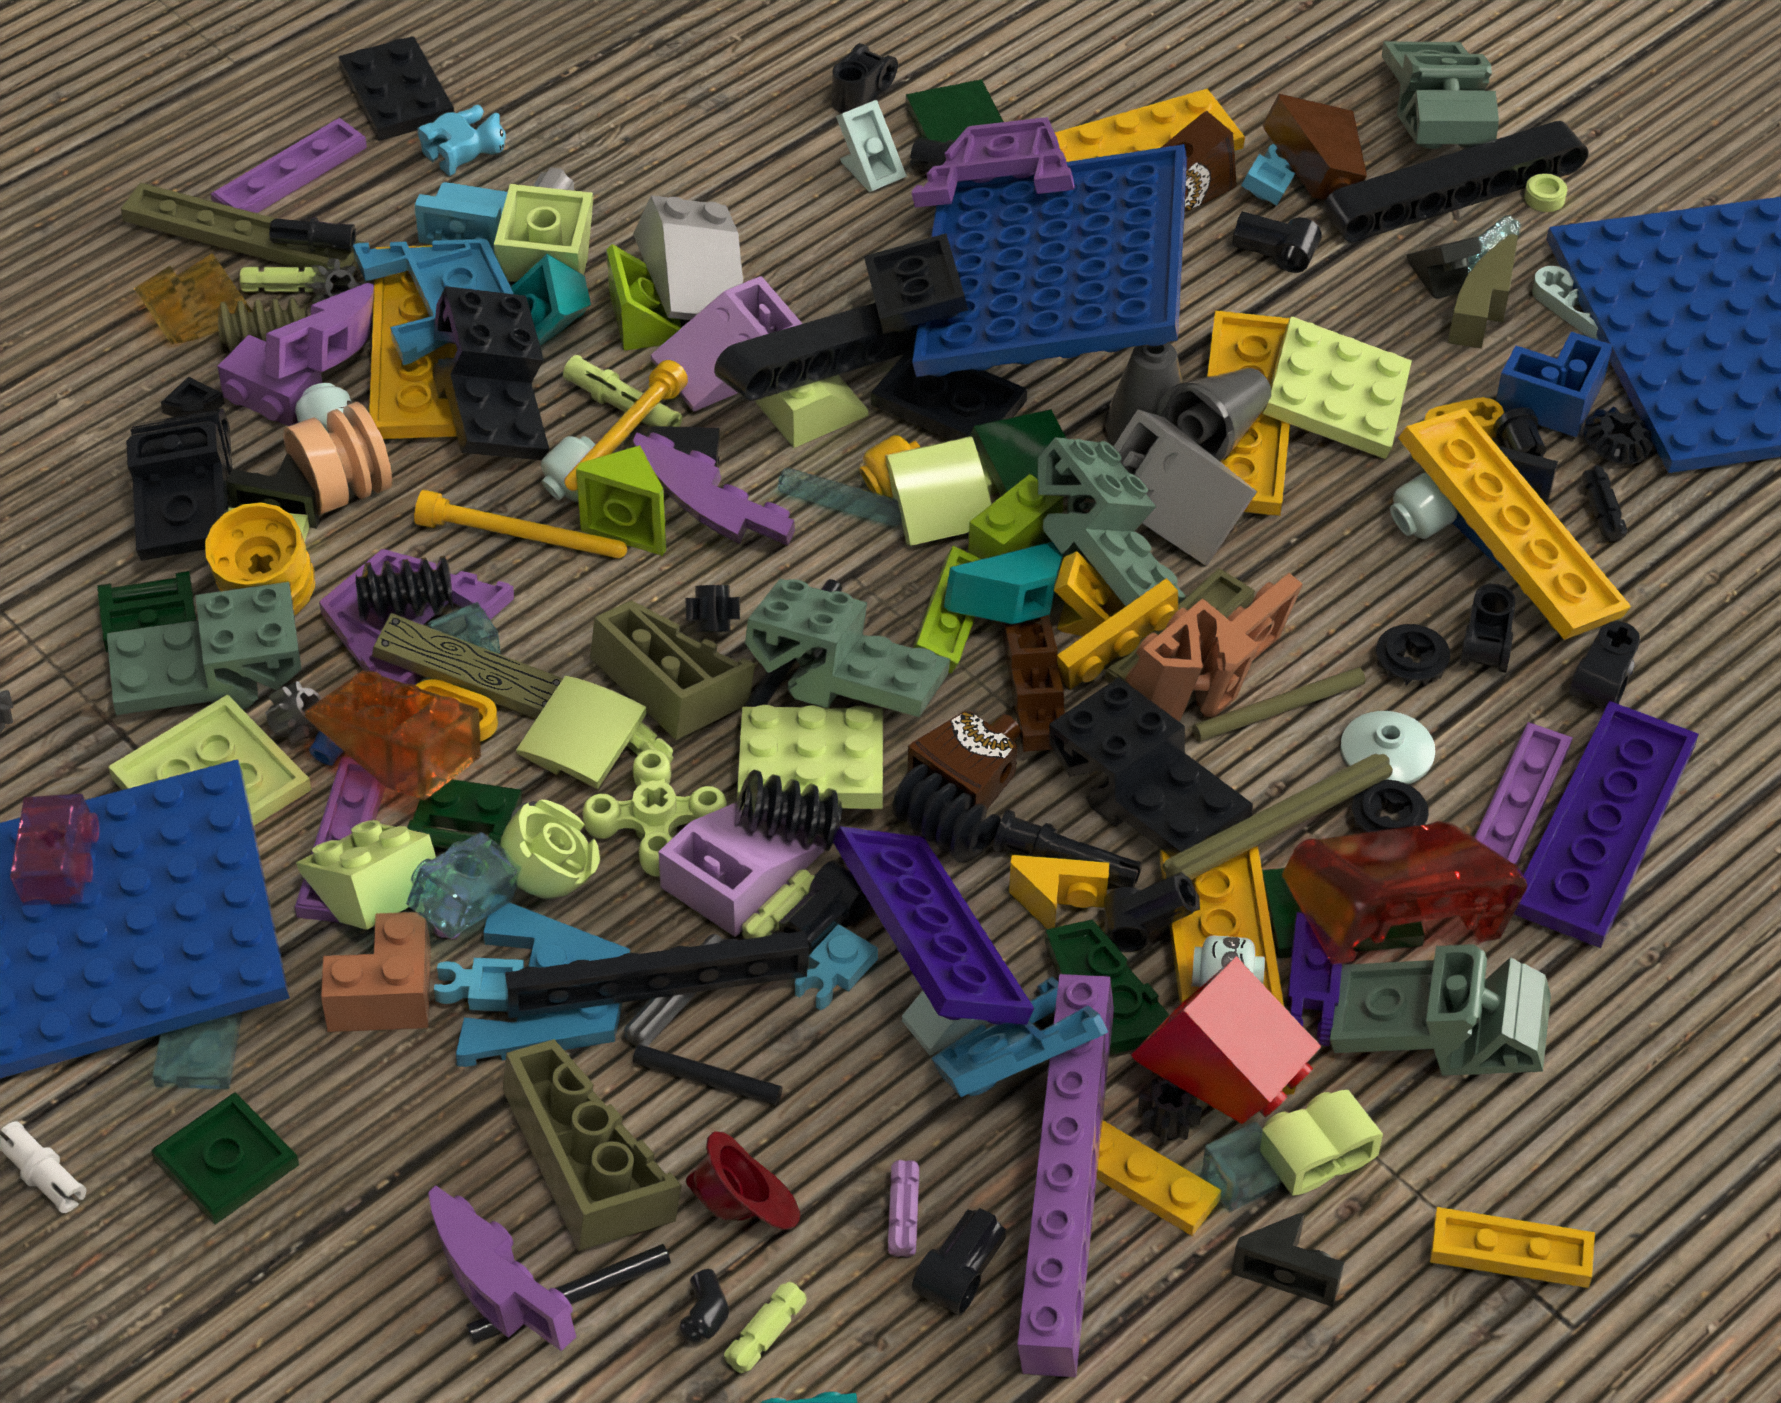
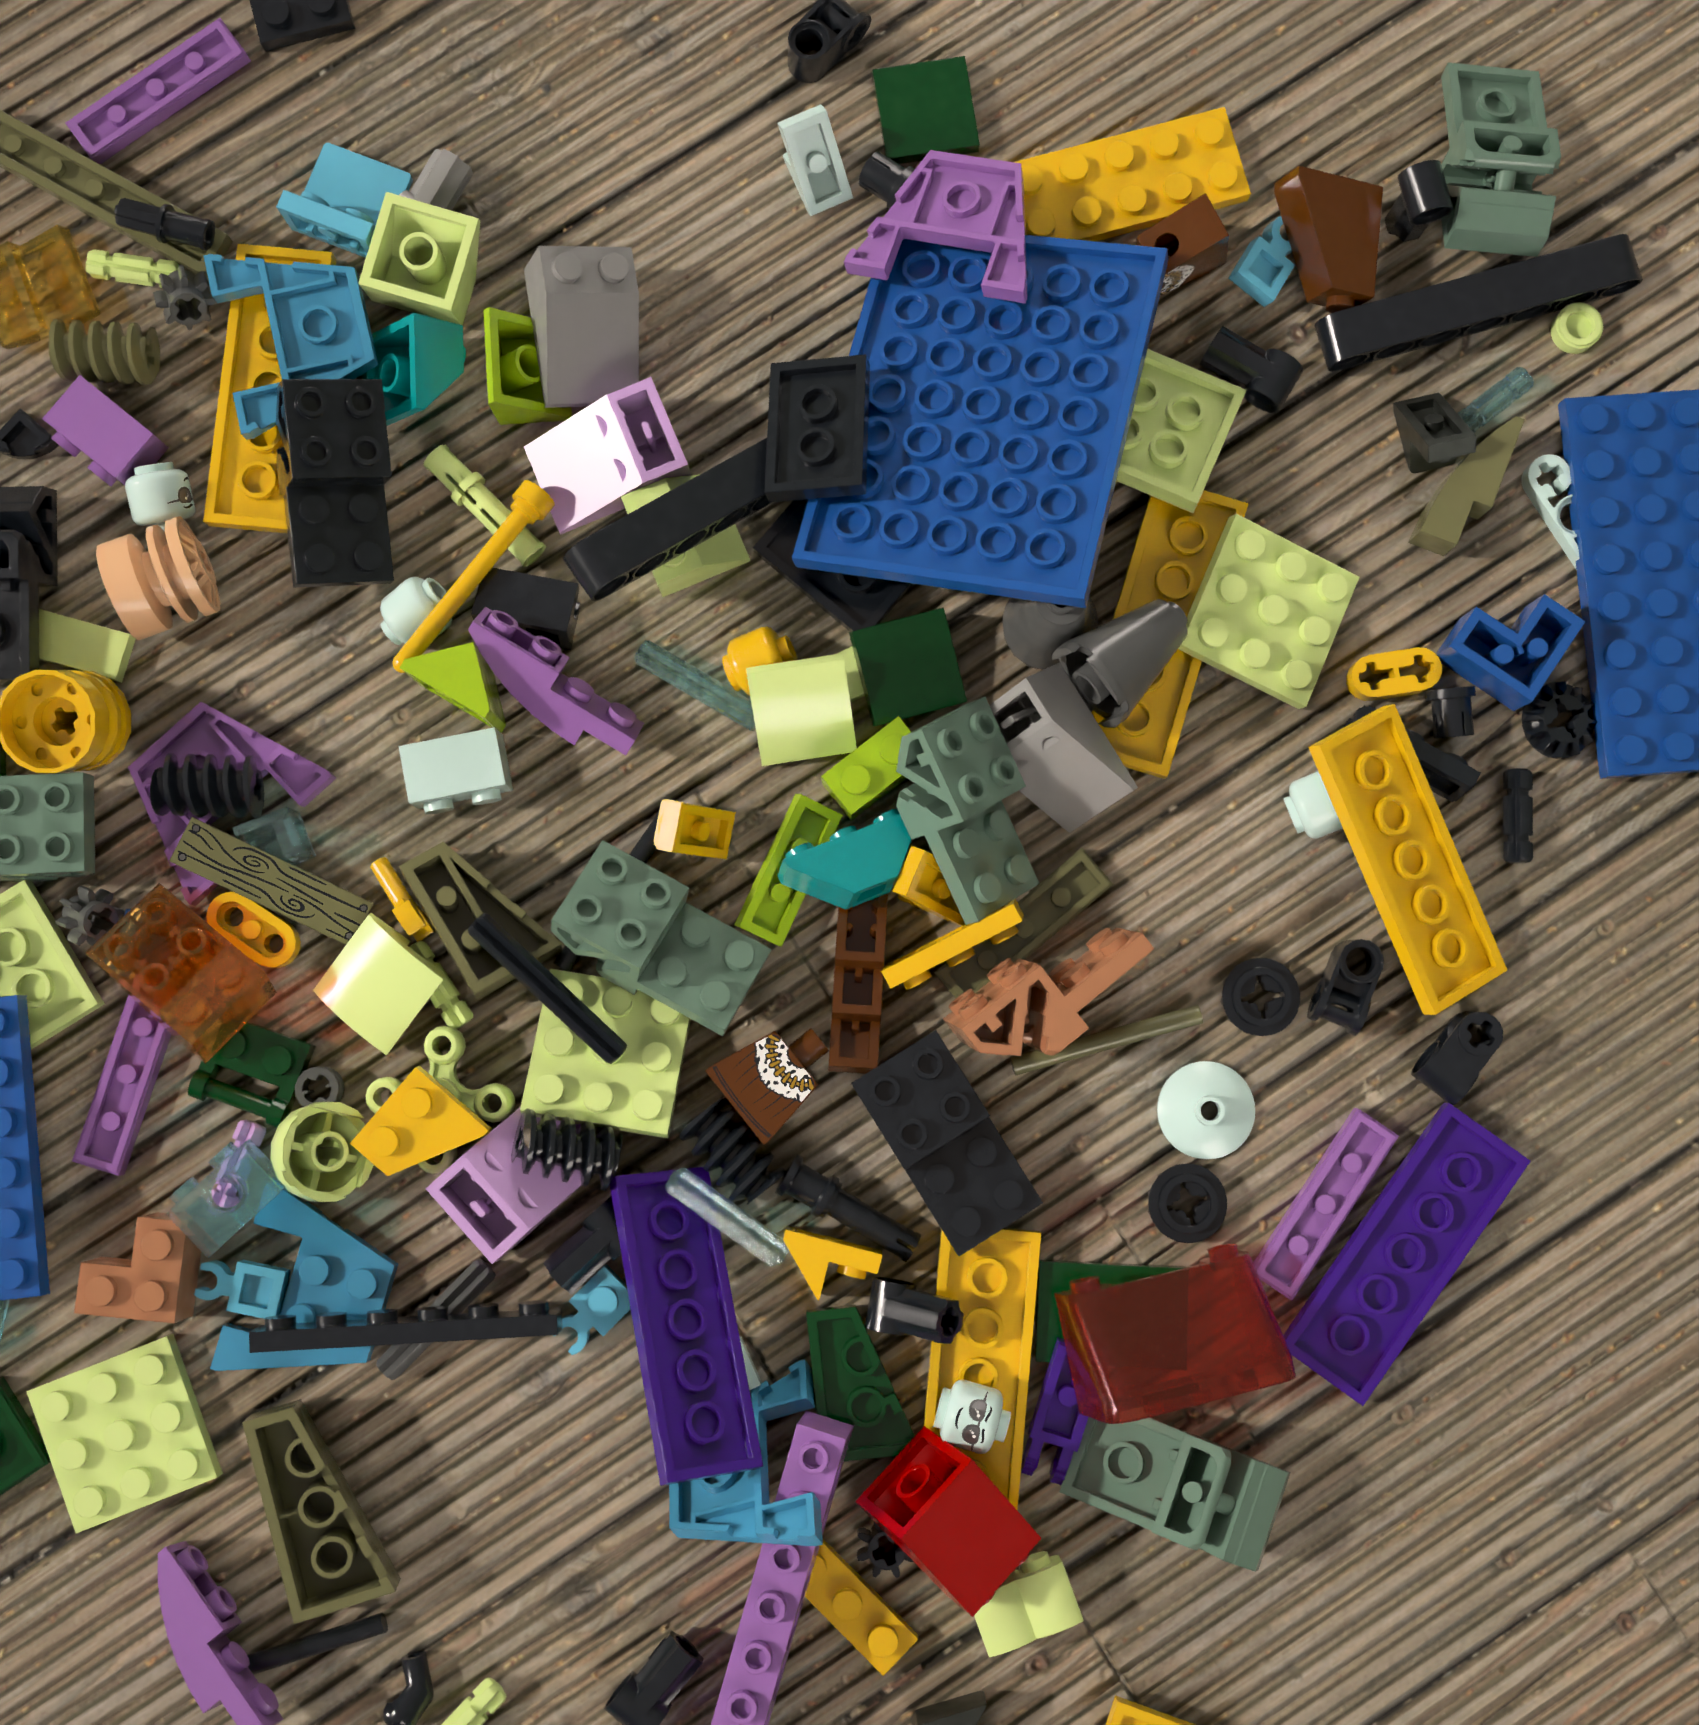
camera: 10 degrees right, 35 degrees up
(287, 490) = (83, 600): pearl dark grey slope -> none
(325, 337) = (174, 388): medium lavender slope -> none
(366, 871) = (143, 1146): yellowish green slope -> none
(372, 1126) = (124, 1433): none -> yellowish green plate
(434, 510) = (263, 645): yellow piece -> none
(458, 141) = (354, 83): medium azure animal -> none
(598, 672) = (405, 909): none -> yellow bar
(627, 569) = (456, 770): none -> light aqua brick
(640, 811) = (417, 1125): none -> yellow wing
(707, 1074) = (451, 1421): black bar -> none
(712, 608) = (536, 837): black gear -> none
(739, 1186) = (465, 1580): dark red piece -> none
(750, 688) = (547, 988): none -> black axle
(778, 906) = (551, 1231): yellowish green axle -> none
(859, 576) = (693, 829): none -> yellow slope
(903, 1208) = (613, 1609): lavender axle -> none
(953, 858) = (727, 1217): none -> clear light blue axle
(1224, 277) = (1176, 430): none -> yellowish green plate
(1239, 1167) = (937, 1622): clear light blue panel -> none
(1279, 817) = (1067, 1216): olive axle -> none
(1385, 116) = (1421, 201): none -> black piece

